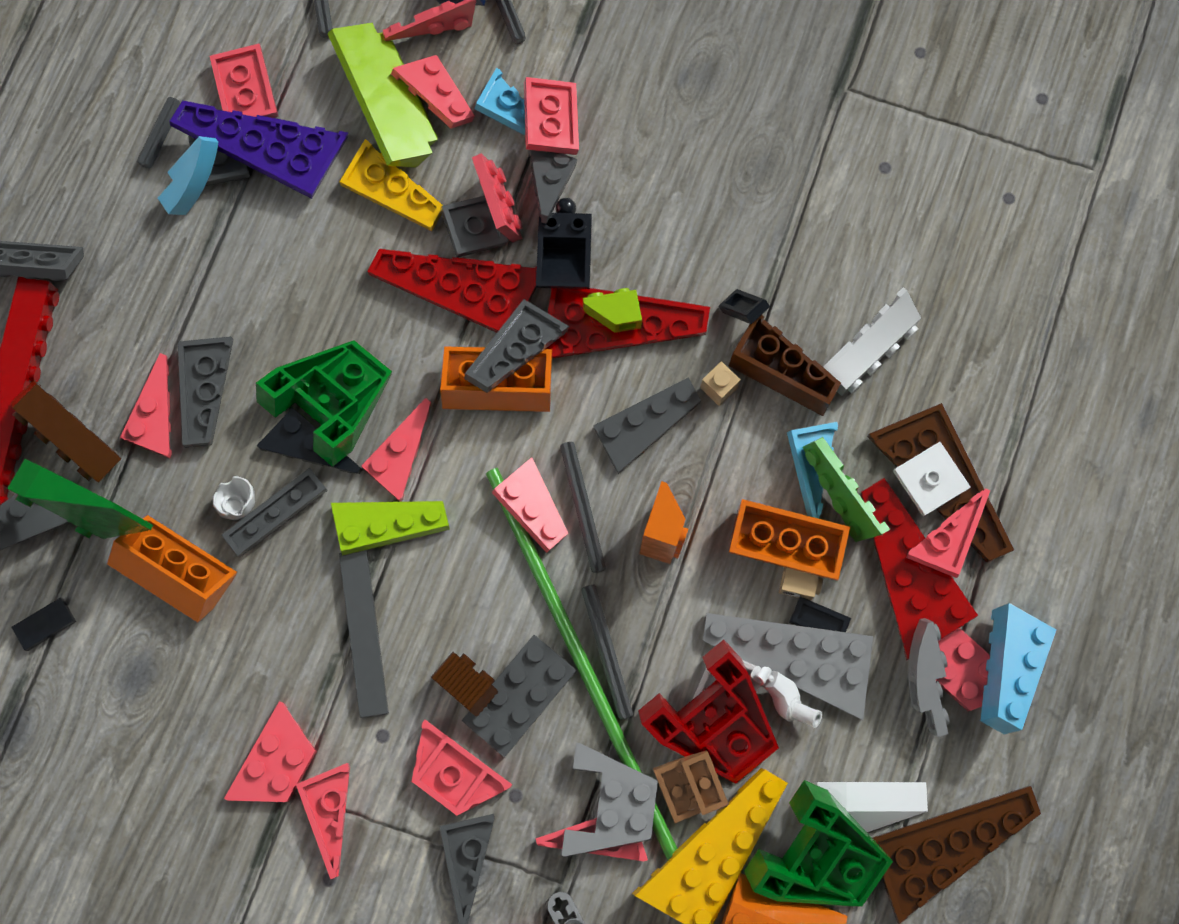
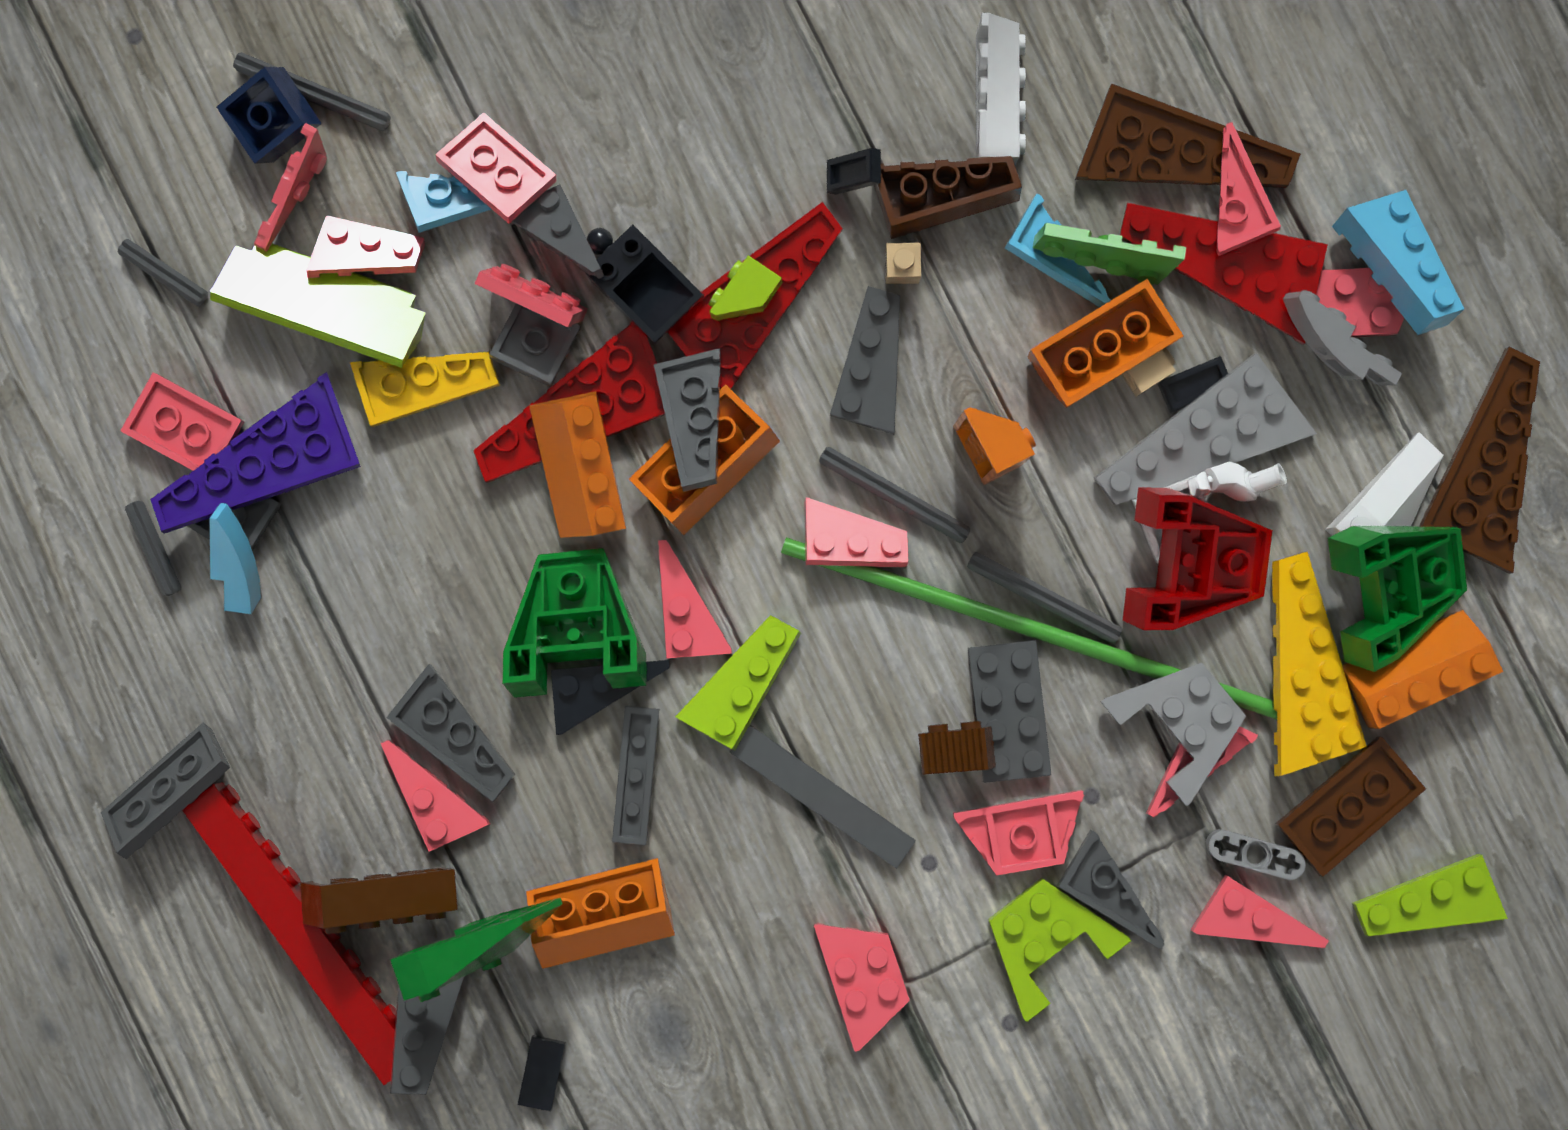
camera: 40 degrees left, 10 degrees up
(234, 499) = (589, 800): white hair -> none
(325, 806) = (945, 969): coral wing -> none
(402, 839) = (1036, 929): none -> lime wing
(426, 312) = (578, 466): none -> orange slope
(690, 786) = (1232, 638): medium nougat slope -> none
(931, 479) = (1171, 162): white plate -> none

